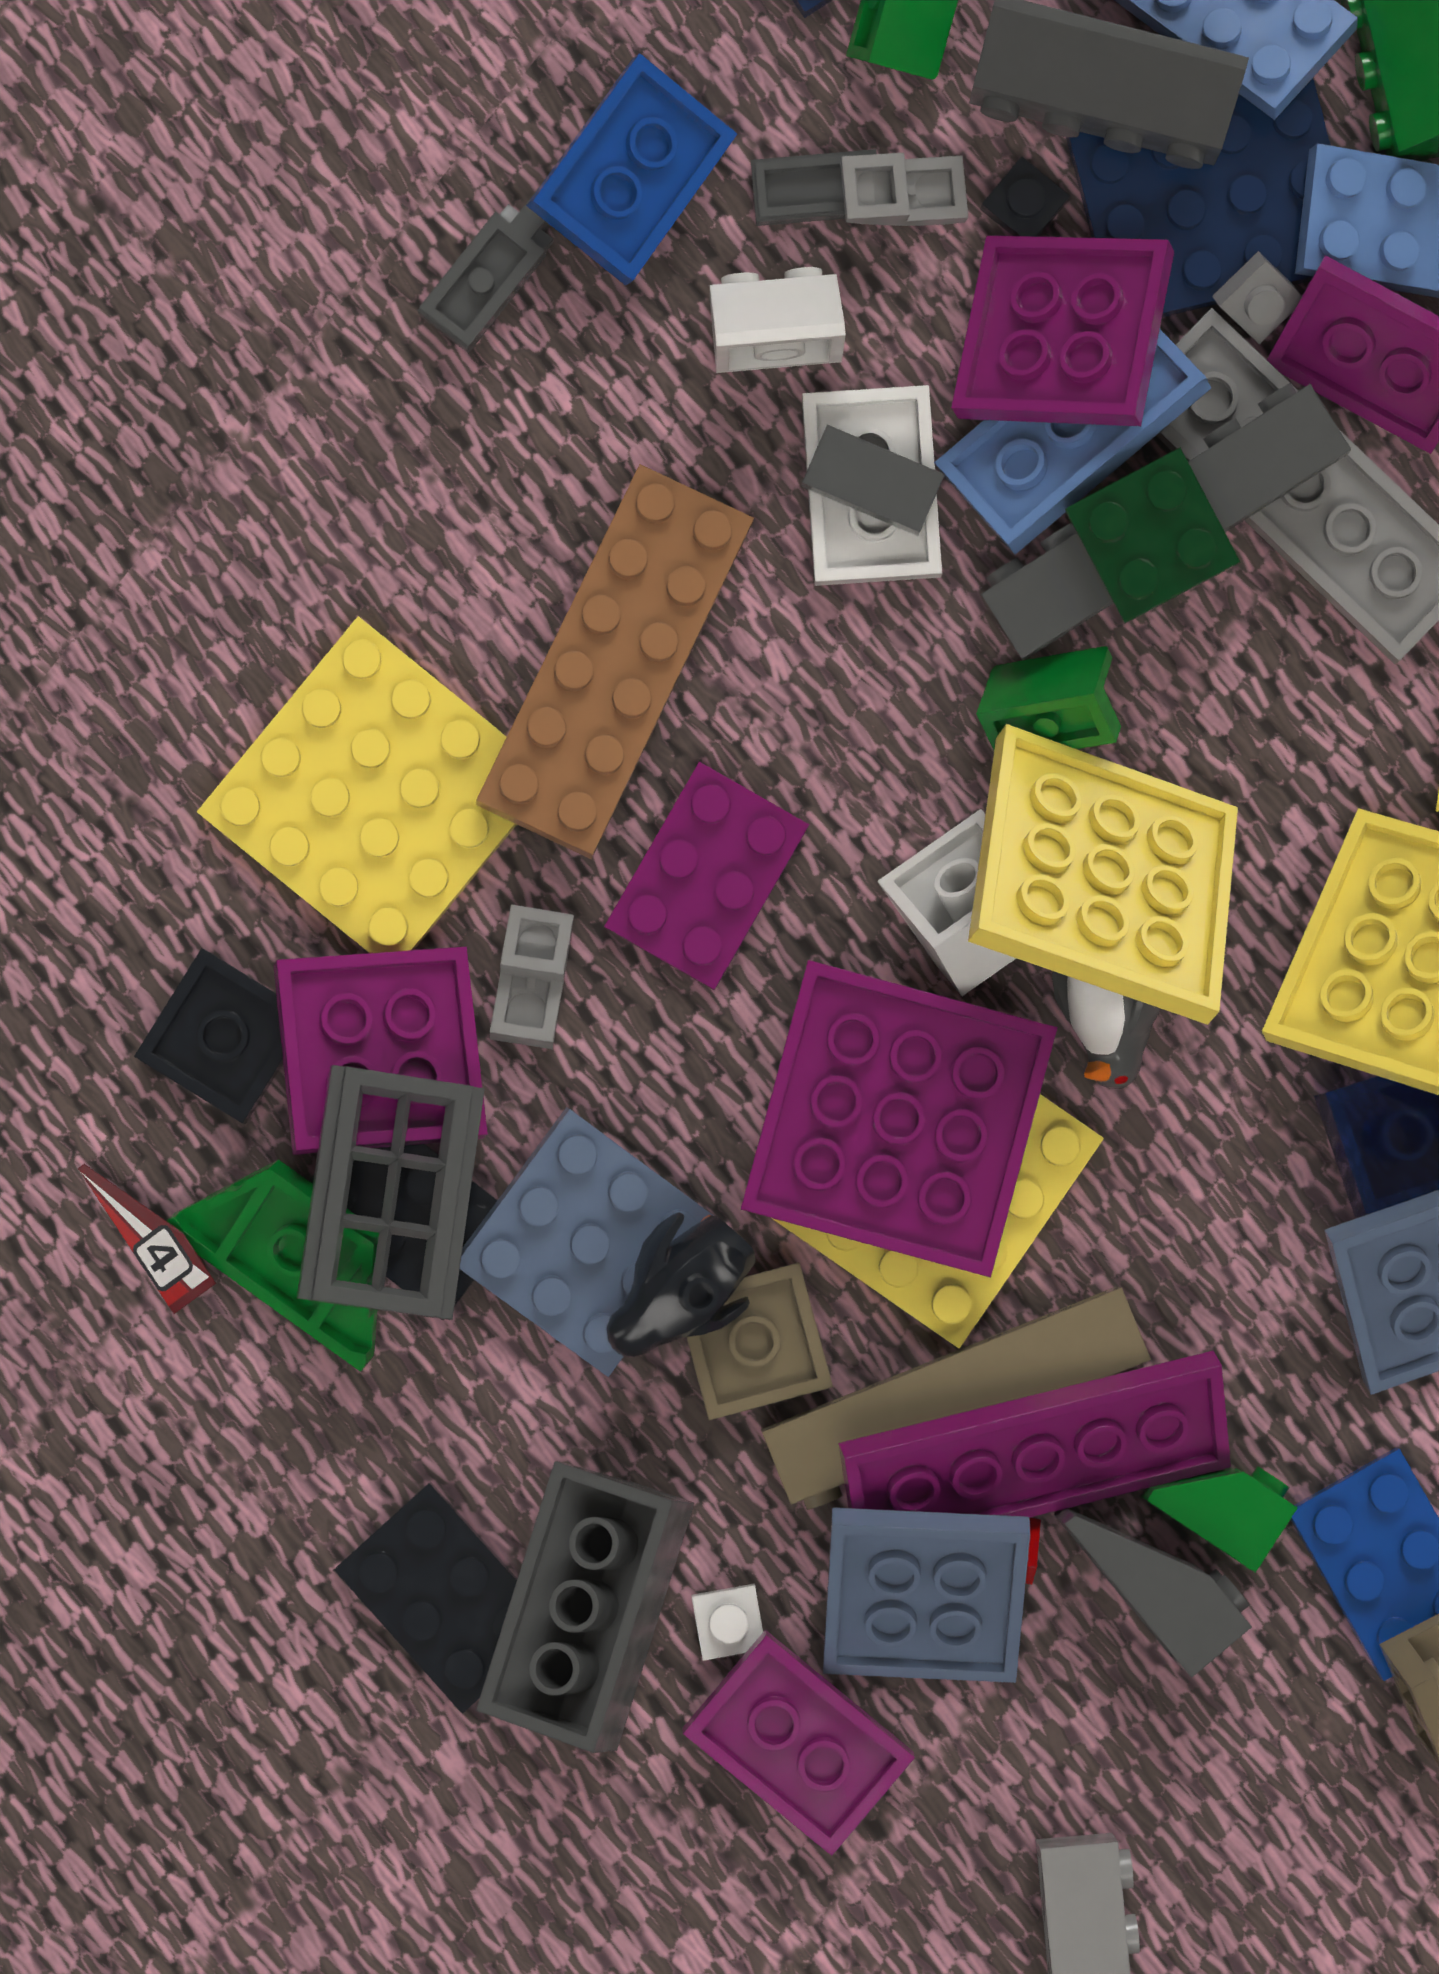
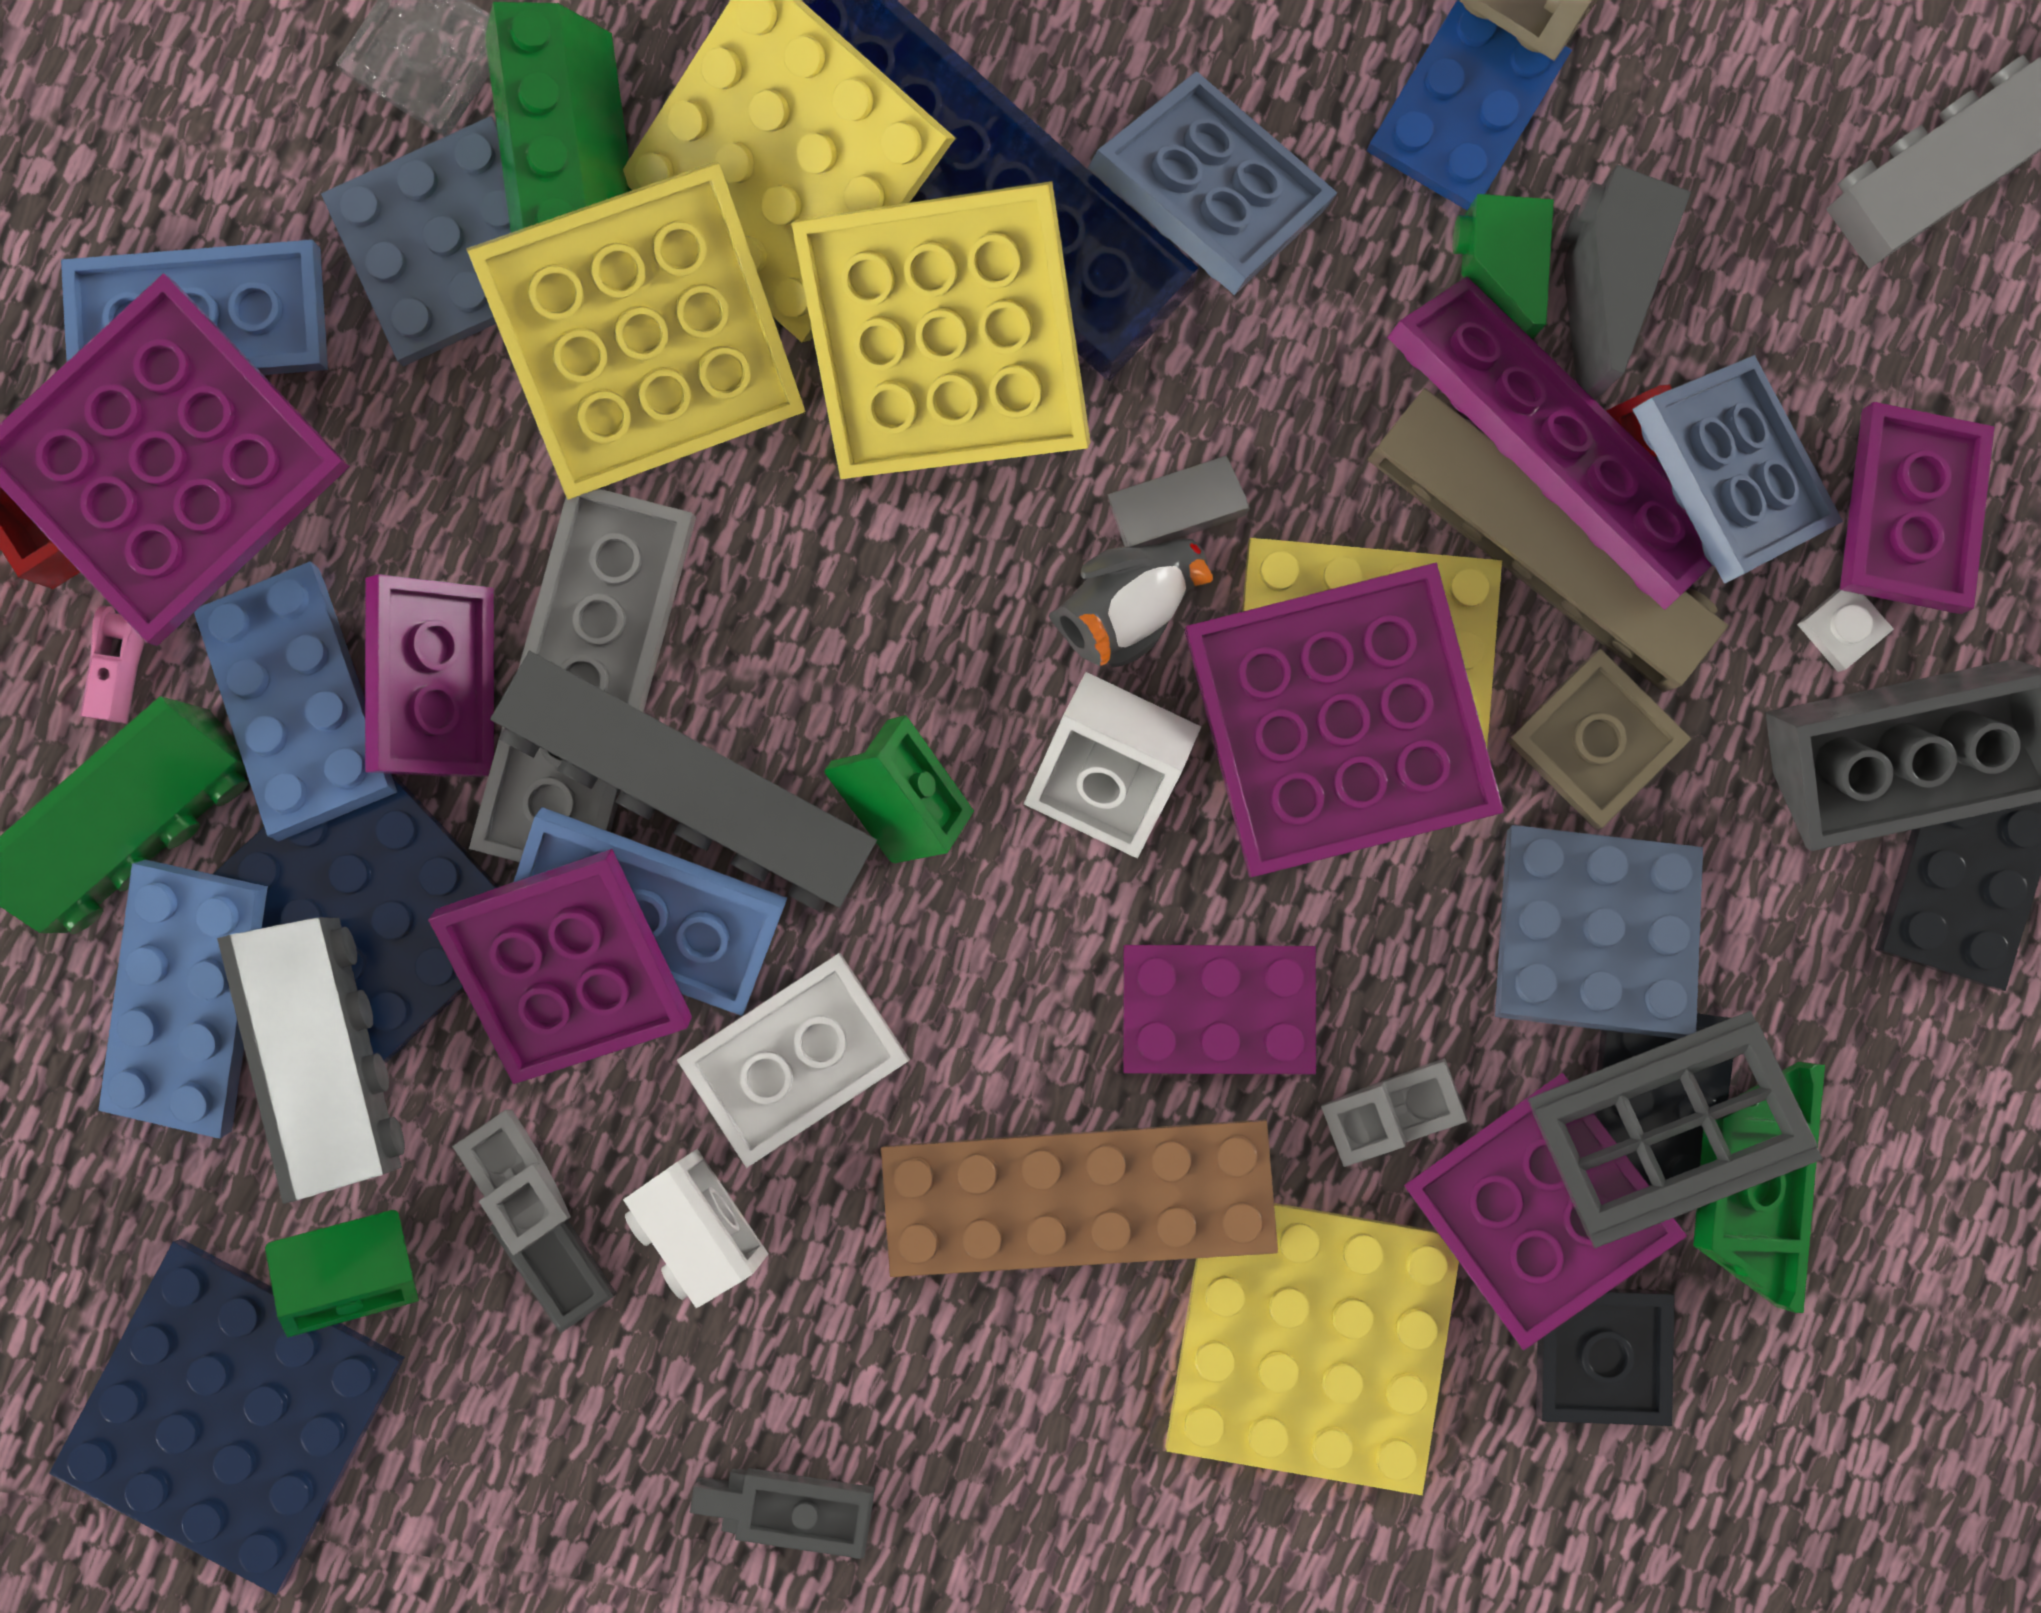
camera: 115 degrees left, 0 degrees up
(155, 1243) = (1816, 1311): sticker -> none
(632, 169) = (629, 1438): blue plate -> none
(681, 1285) = (1602, 826): black animal -> none
(872, 480) = (790, 1062): dark grey tile -> none
(1024, 201) = (463, 1067): black plate -> none
(1105, 875) = (1034, 657): light yellow plate -> none
(1152, 535) = (704, 783): dark green plate -> none
(1170, 1092) = (1179, 504): none -> light grey slope
(1258, 297) = (436, 812): light grey plate -> none

